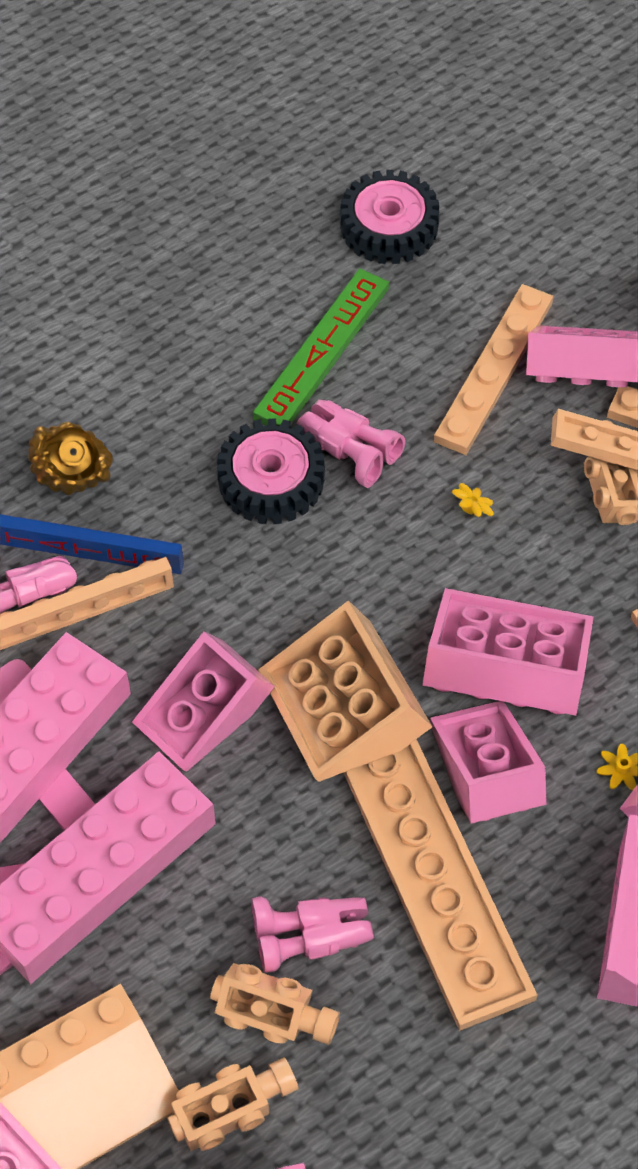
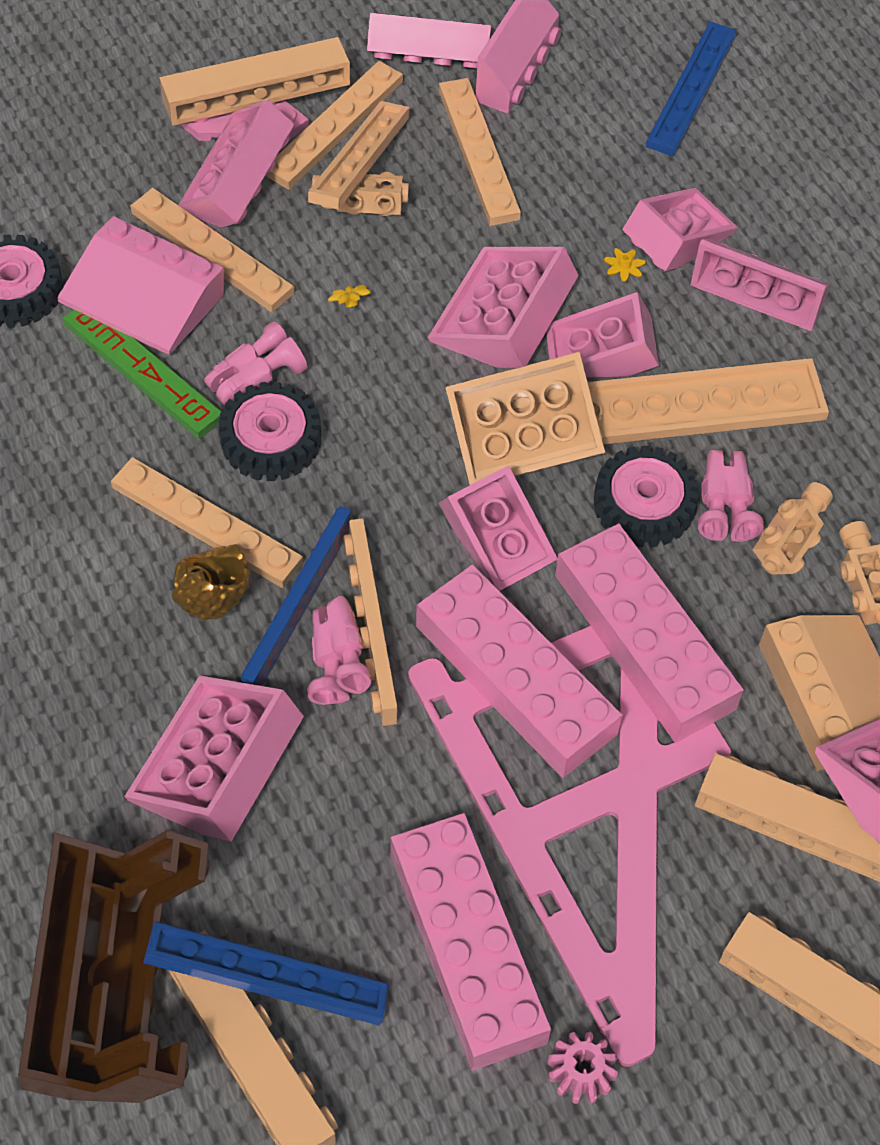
camera: 80 degrees left, 0 degrees up
(152, 448) = (206, 521): none -> light nougat plate
(292, 869) = (635, 475): none -> wheel
(413, 319) = (143, 285): none -> bright pink slope

